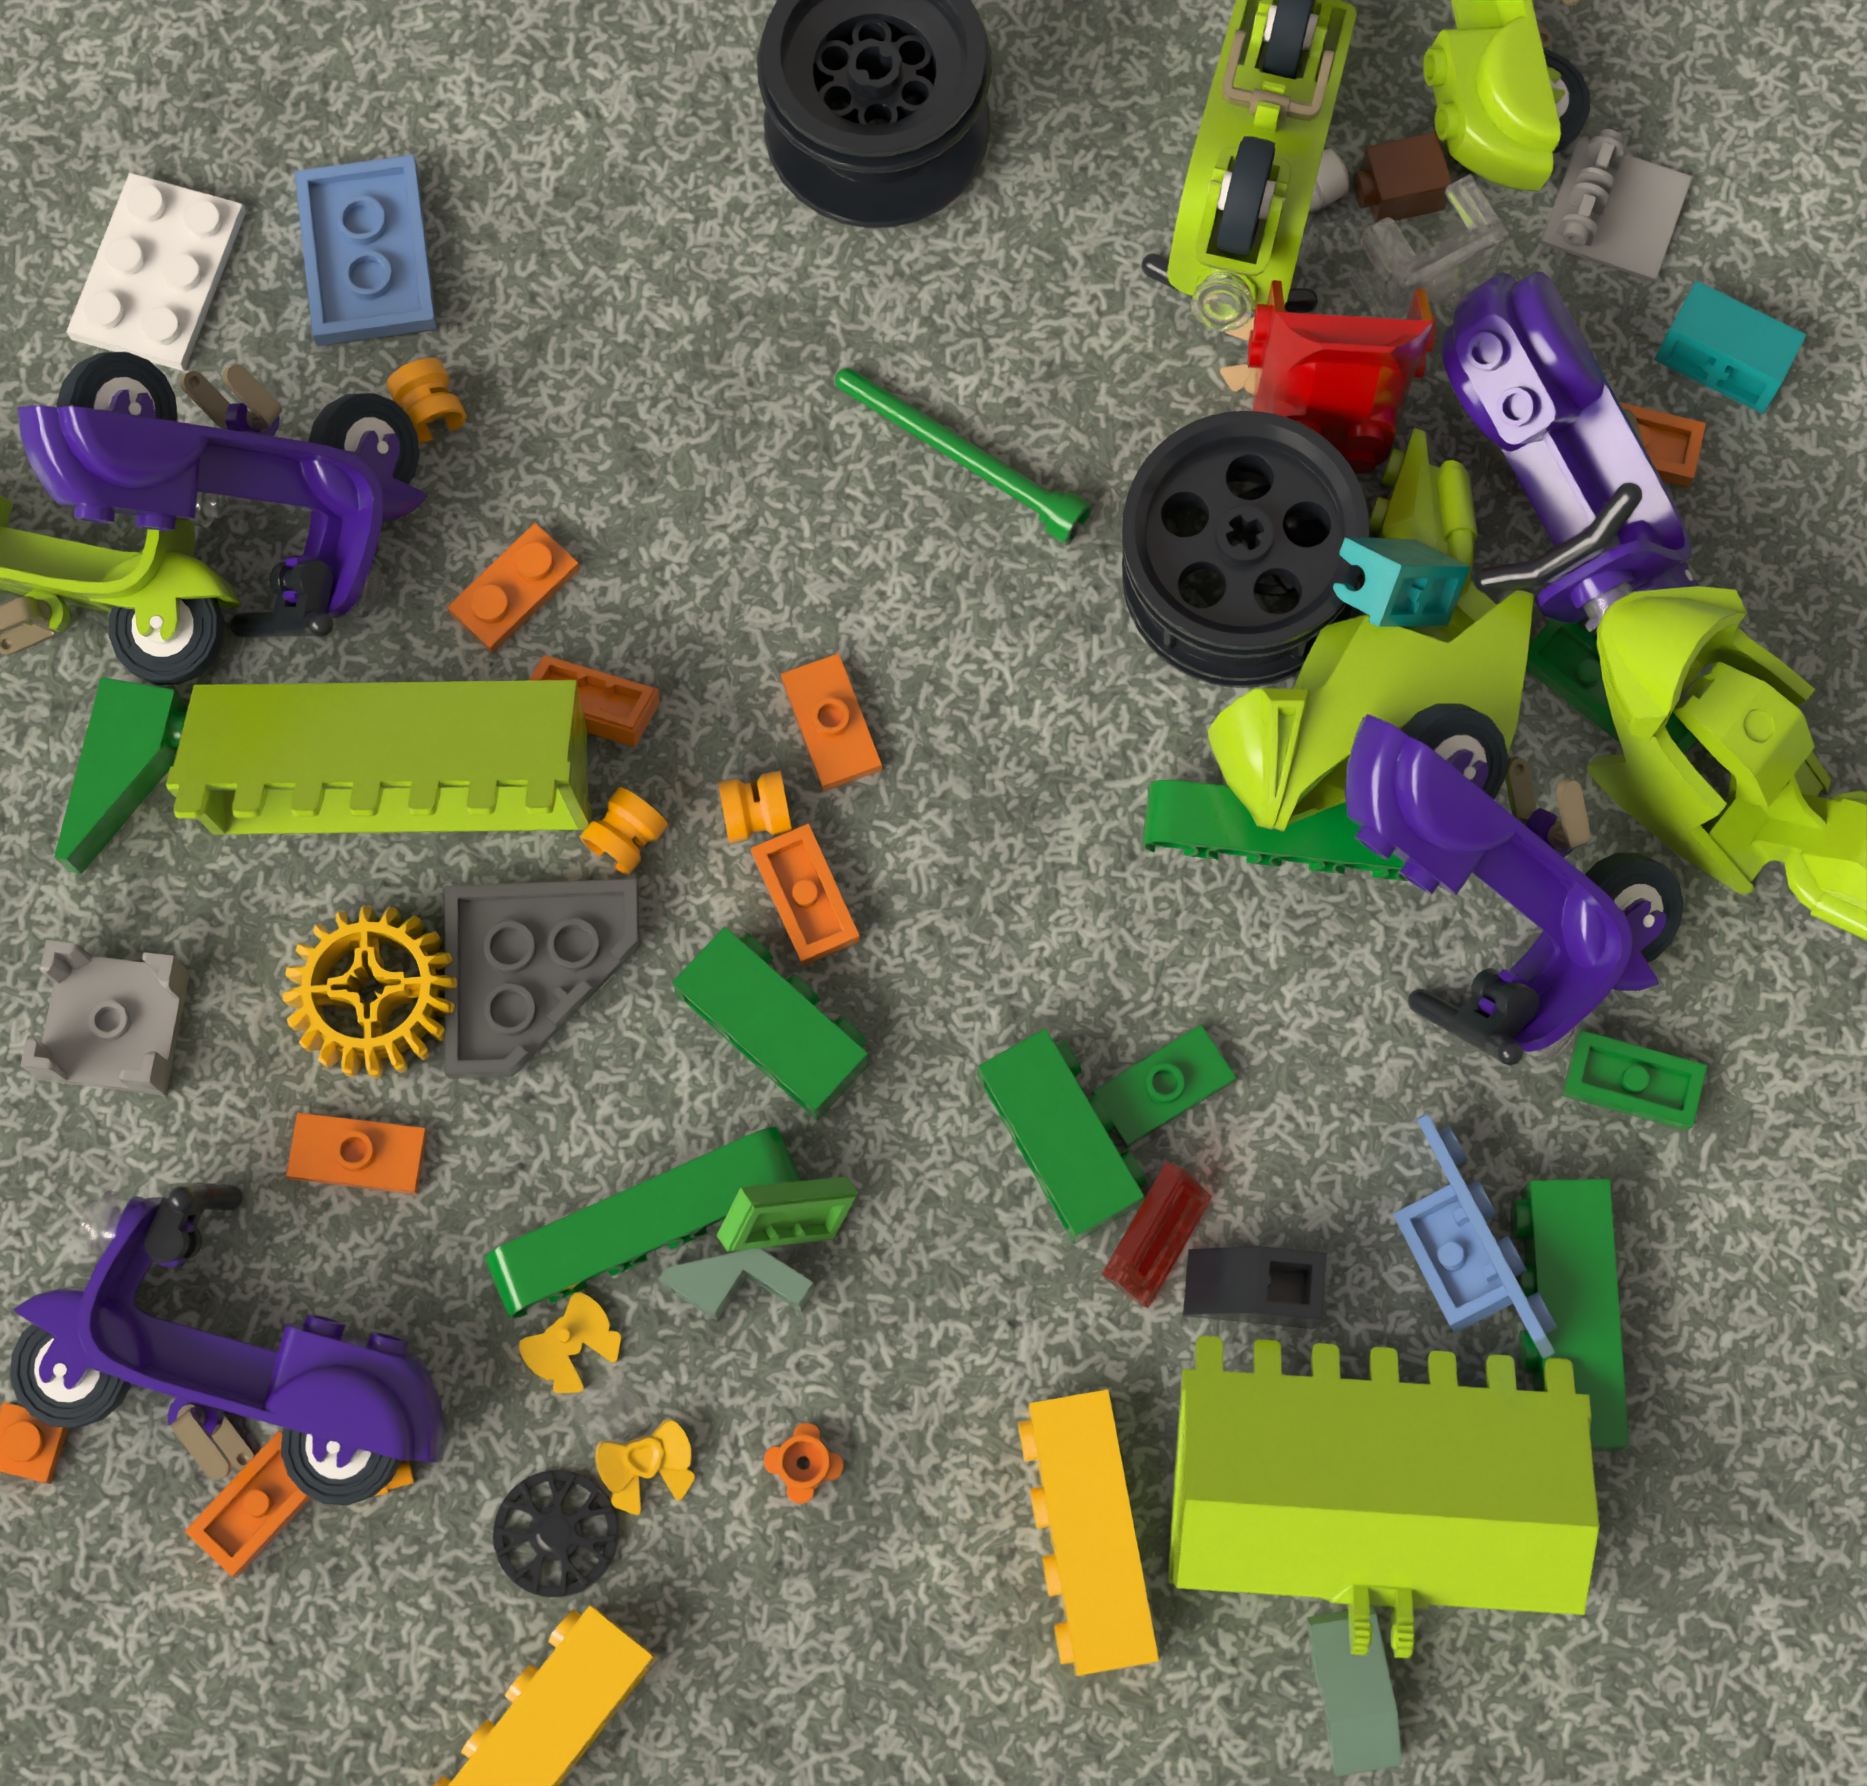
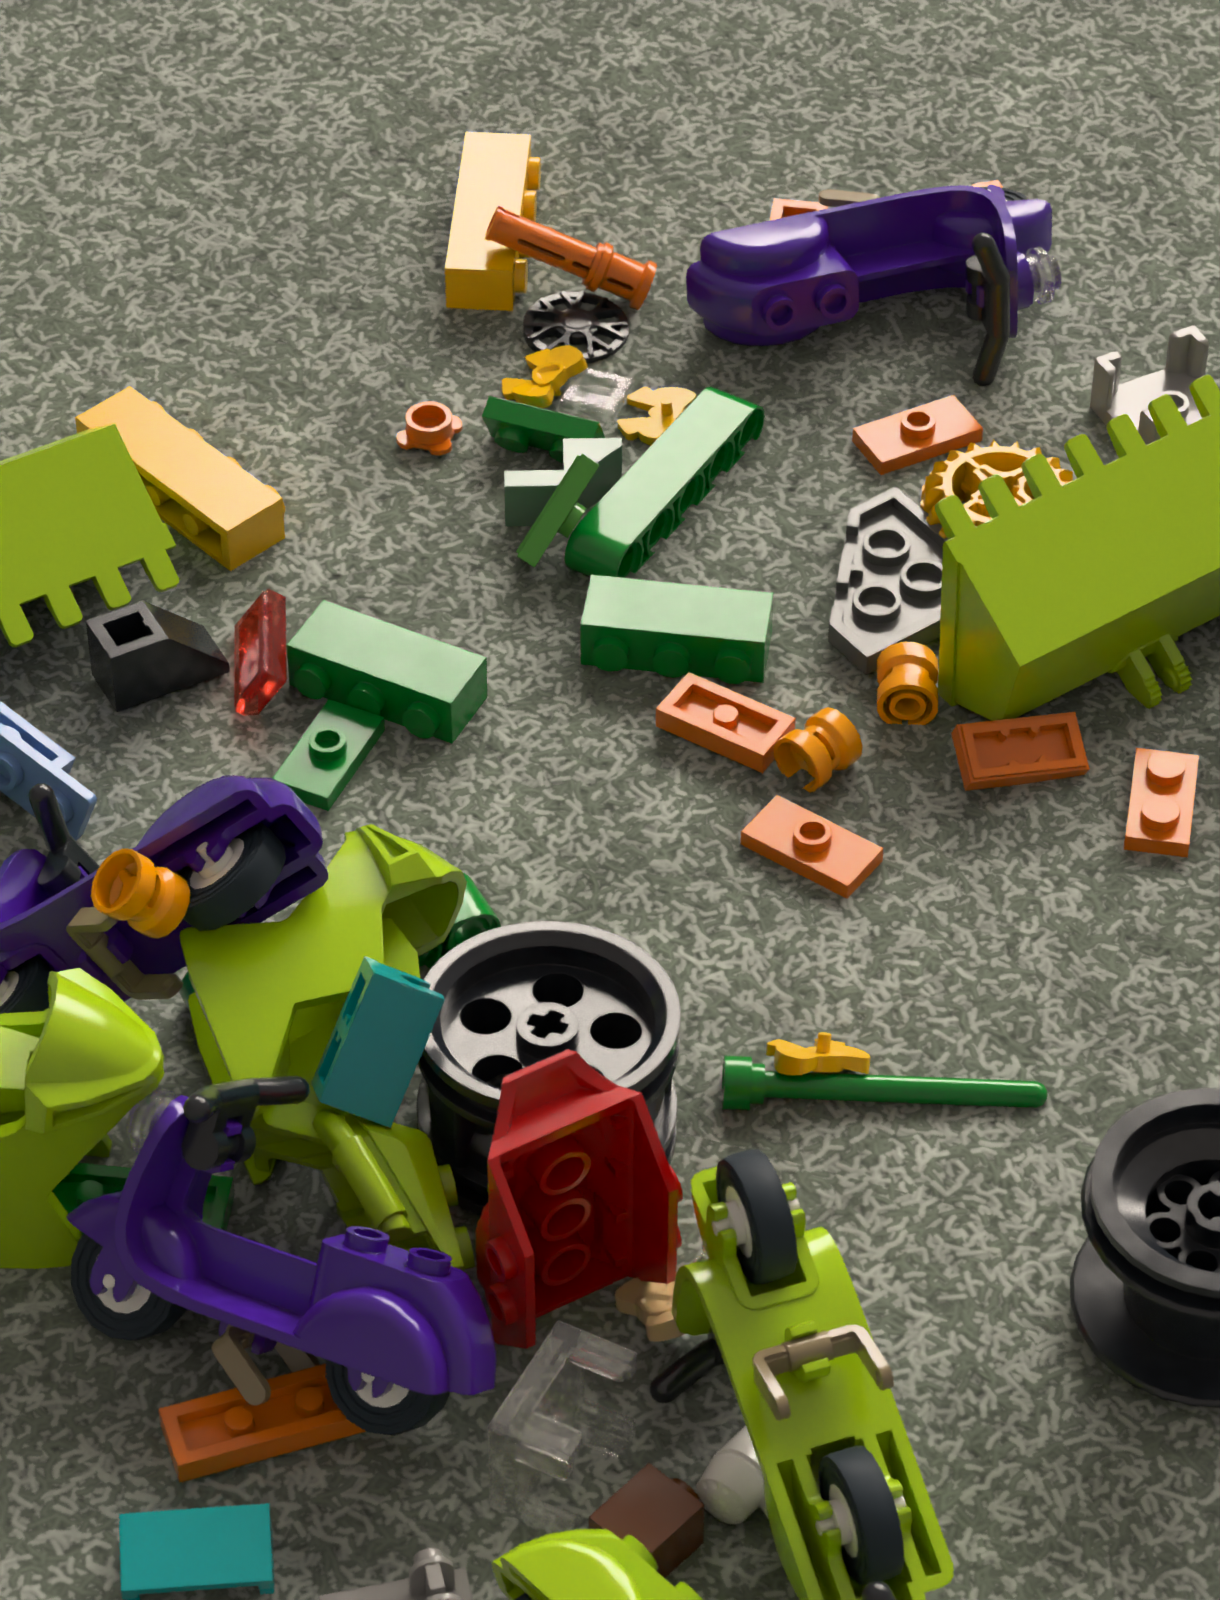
camera: 145 degrees right, 30 degrees down
(493, 1575) = (596, 265): none -> orange pin
(704, 1369) = (522, 425): none -> green plate
(1012, 490) = (823, 1057): none -> yellow piece
(1529, 769) = (142, 894): none -> light orange wheel

